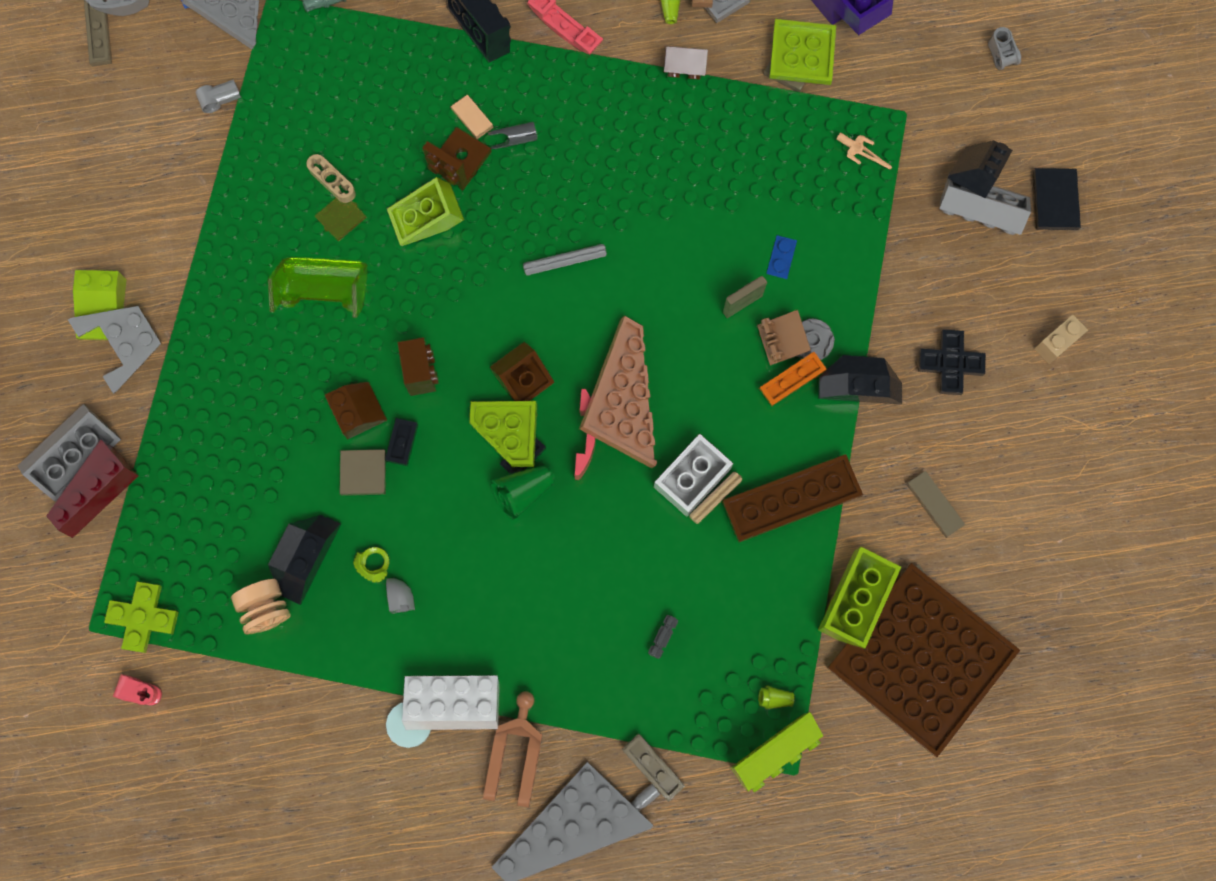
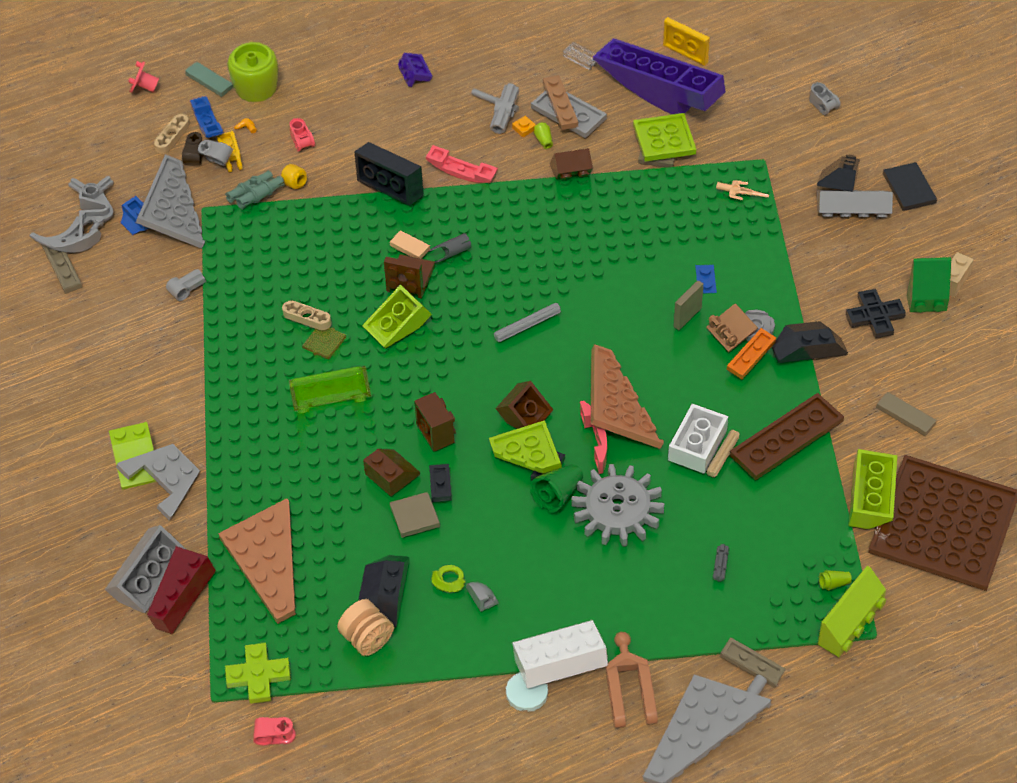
camera: 15 degrees left, 25 degrees down
(191, 475) = (265, 557): none -> nougat wing
(587, 549) = (631, 514): none -> light grey gear
(1023, 352) = (929, 284): none -> green slope

